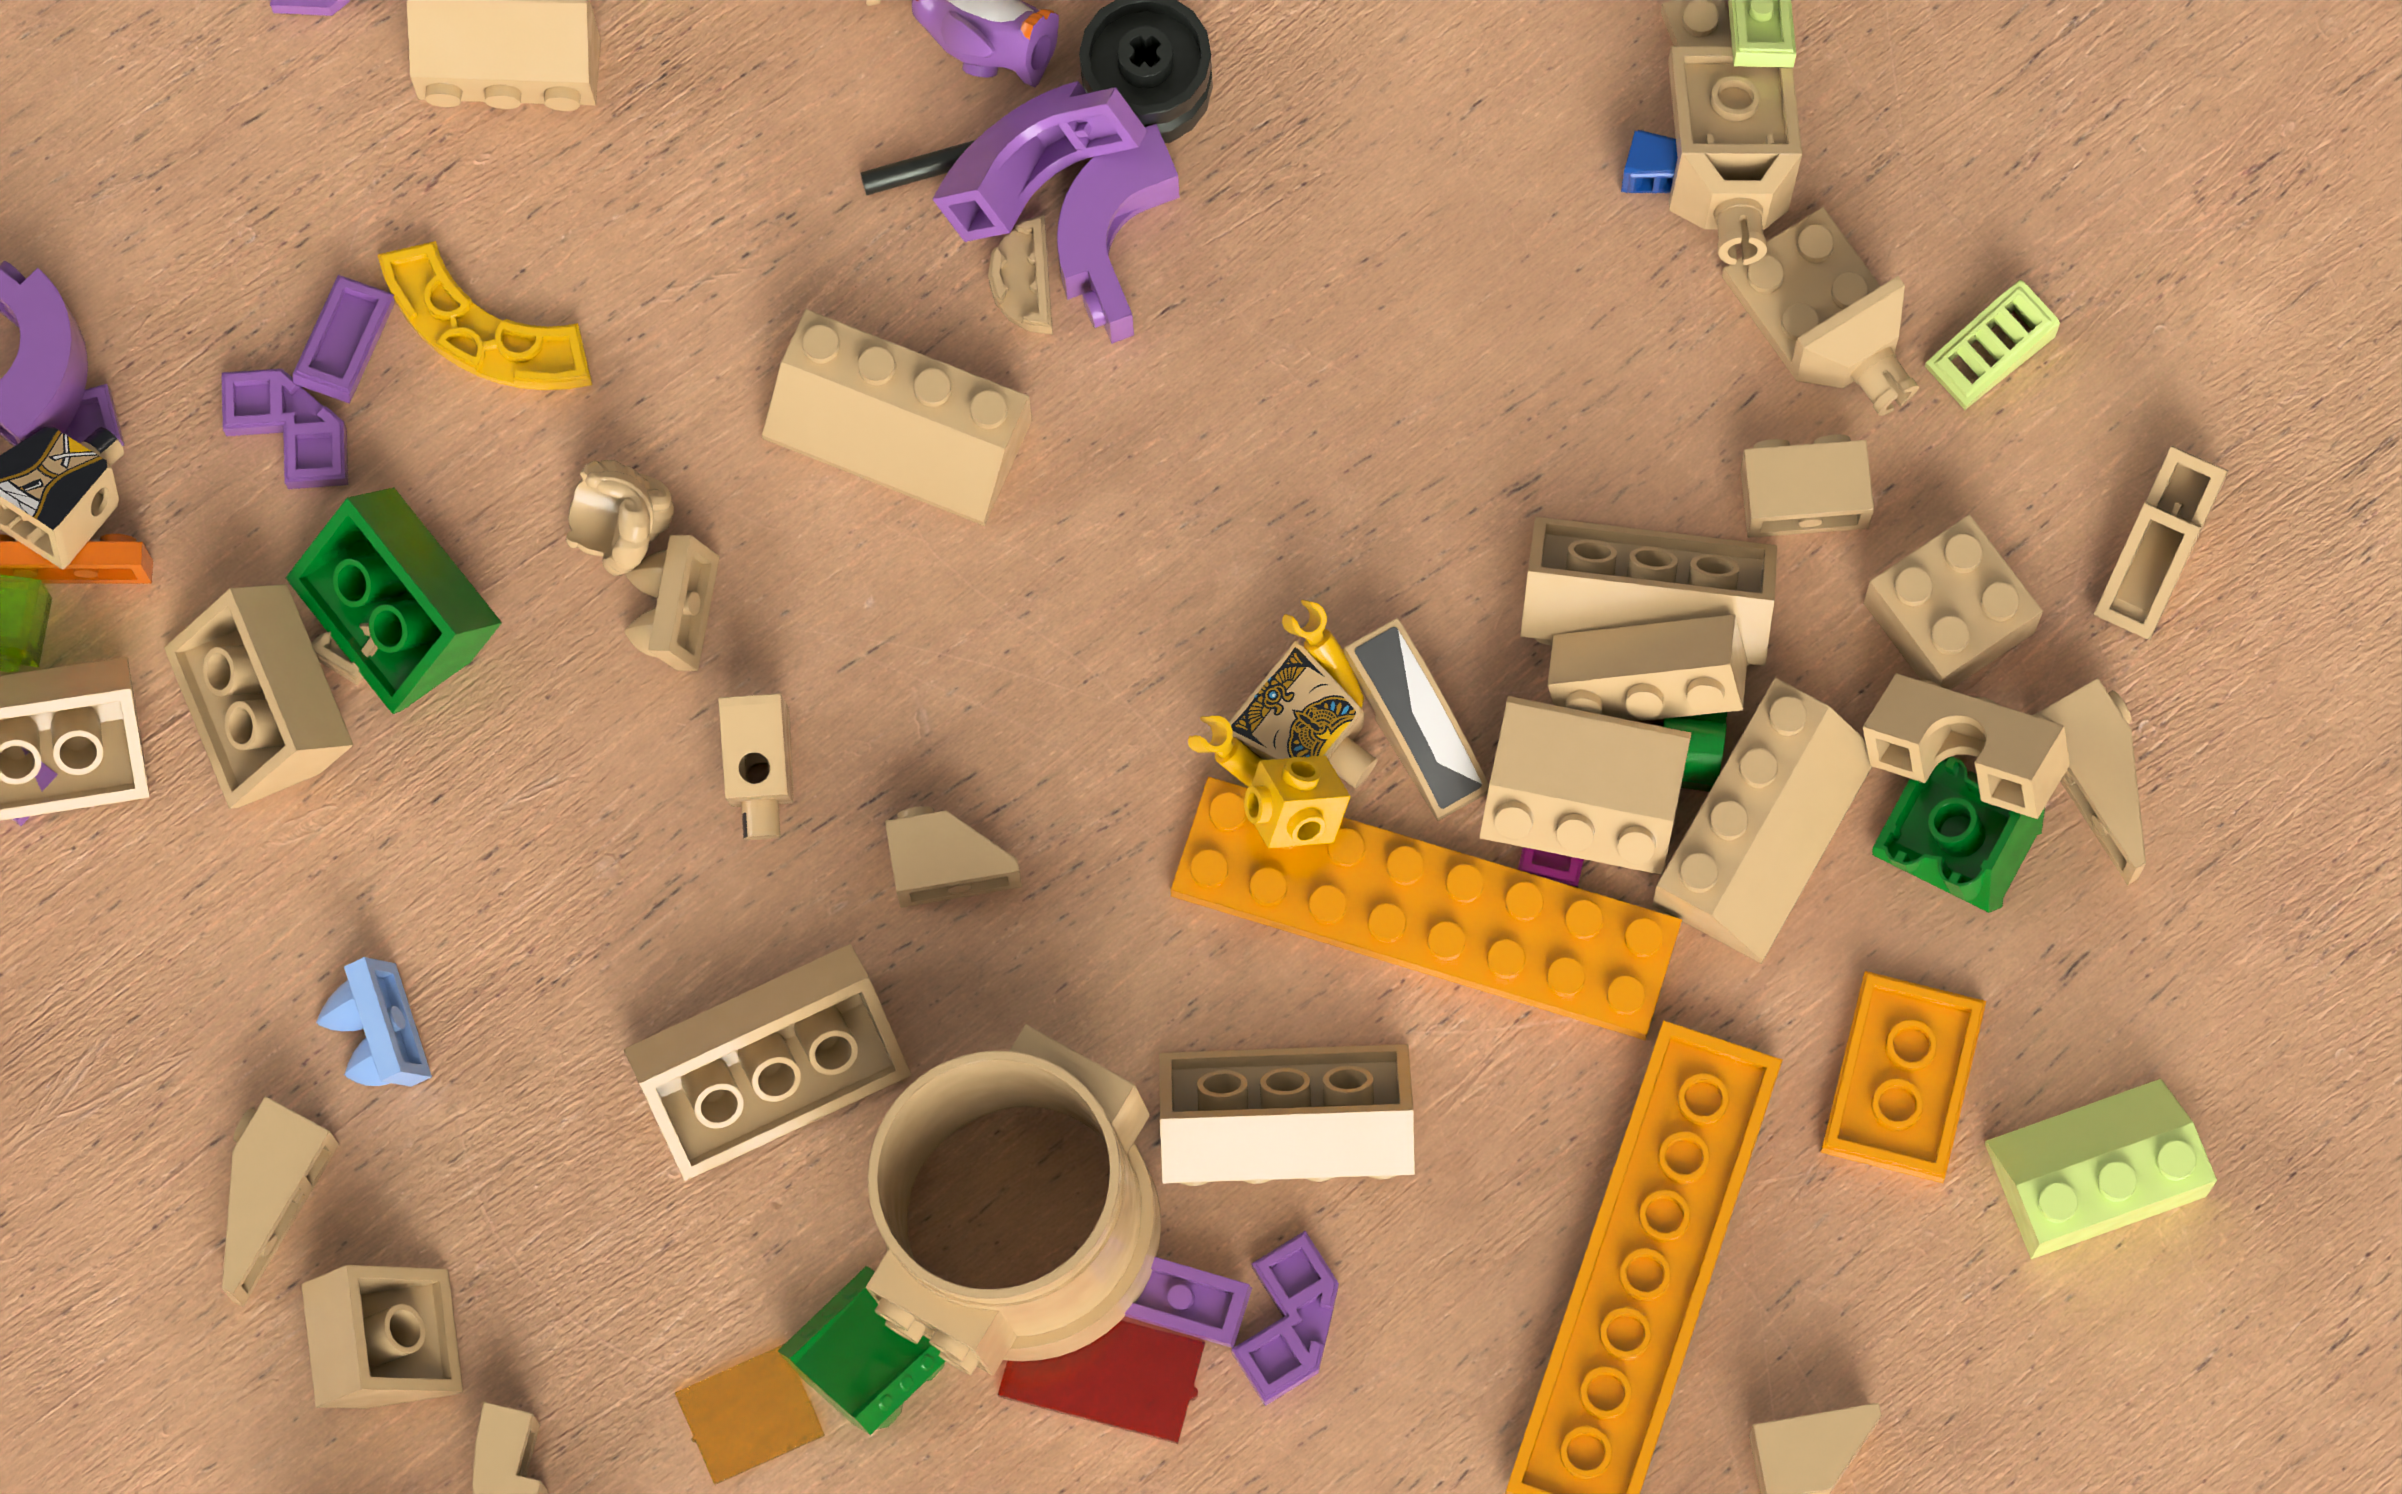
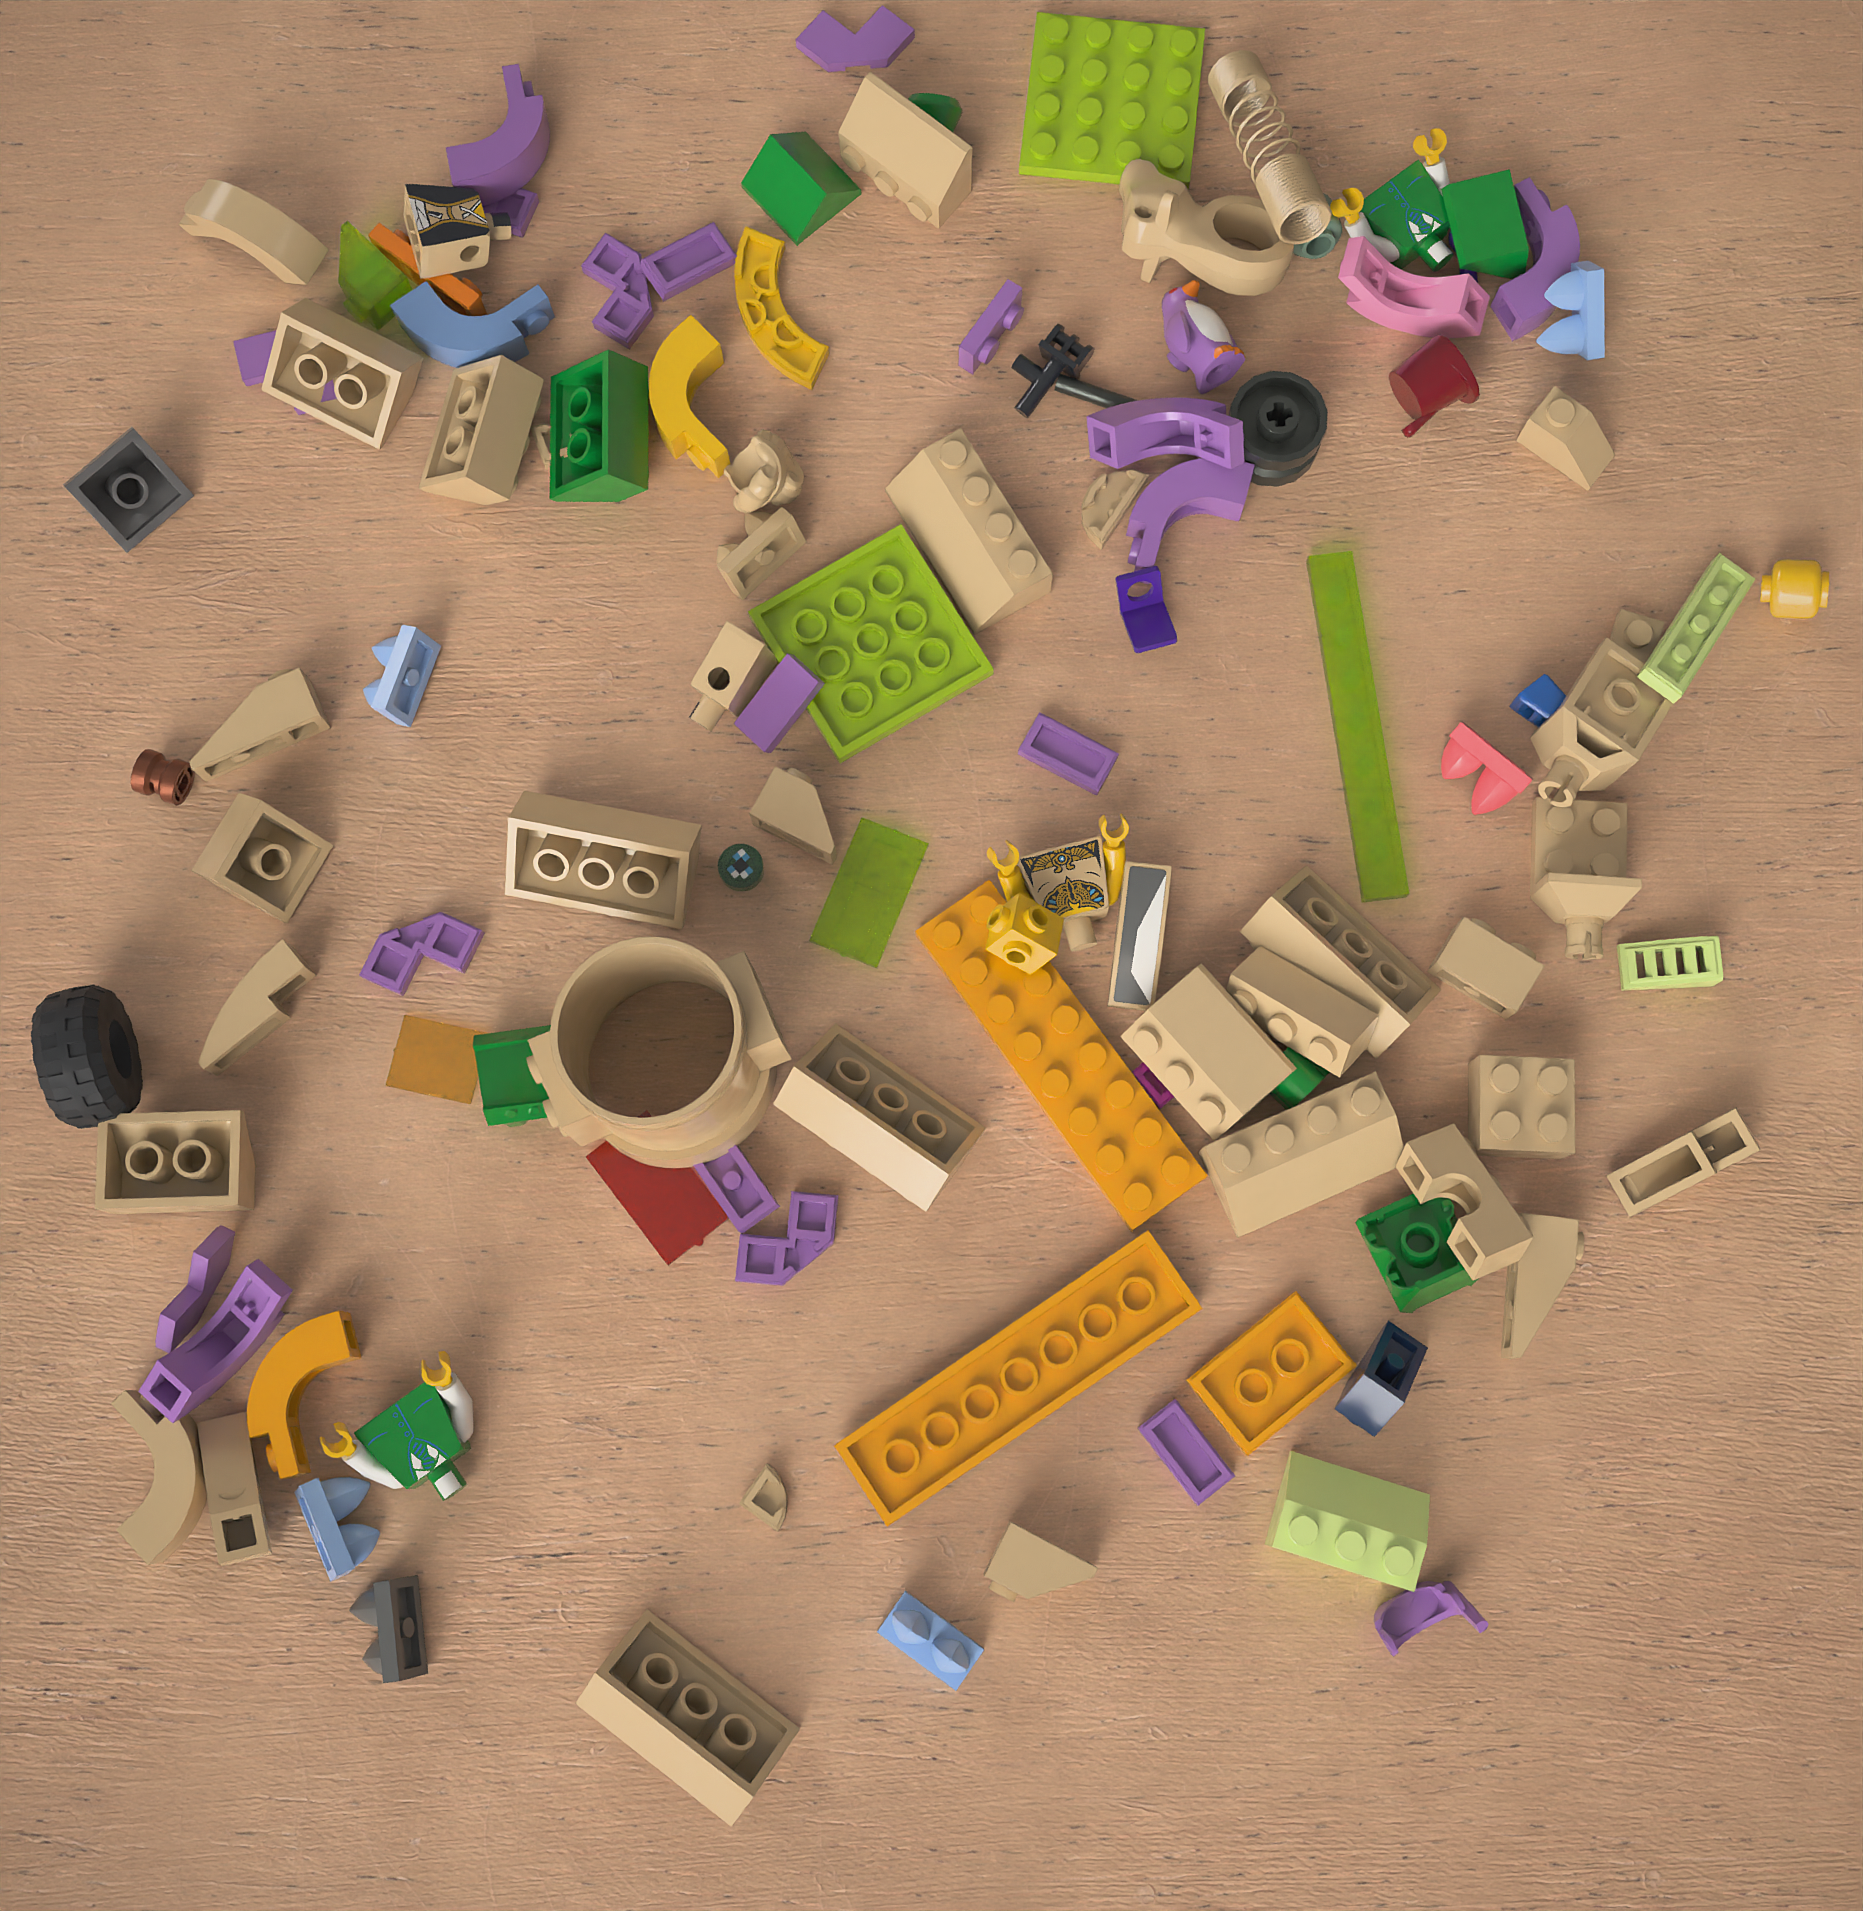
camera: 35 degrees right, 5 degrees up
(158, 606) = (470, 339): none -> medium blue arch
(196, 1332) = (161, 776): none -> copper wheel
(401, 167) = (798, 184): none -> green slope
(429, 459) = (676, 373): none -> yellow arch
(644, 1283) = (401, 950): none -> medium lavender tile
(748, 199) = (982, 340): none -> medium lavender plate
(832, 751) = (779, 703): none -> medium lavender tile
(849, 161) = (1058, 361): none -> black arm
(880, 615) = (877, 640): none -> lime plate
(925, 961) = (741, 867): none -> clear green tile
(1086, 887) = (869, 892): none -> clear neon green piece
(1158, 369) = (1146, 615): none -> dark purple bracket
(1188, 581) = (1068, 753): none -> medium lavender tile
(1476, 328) = (1357, 727): none -> clear neon green tile
(1671, 279) = (1497, 782): none -> coral tile
(1878, 1224) = (1186, 1452): none -> medium lavender tile
(2022, 995) = (1381, 1379): none -> dark blue slope
(2240, 1200) = (1414, 1611): none -> medium lavender helmet

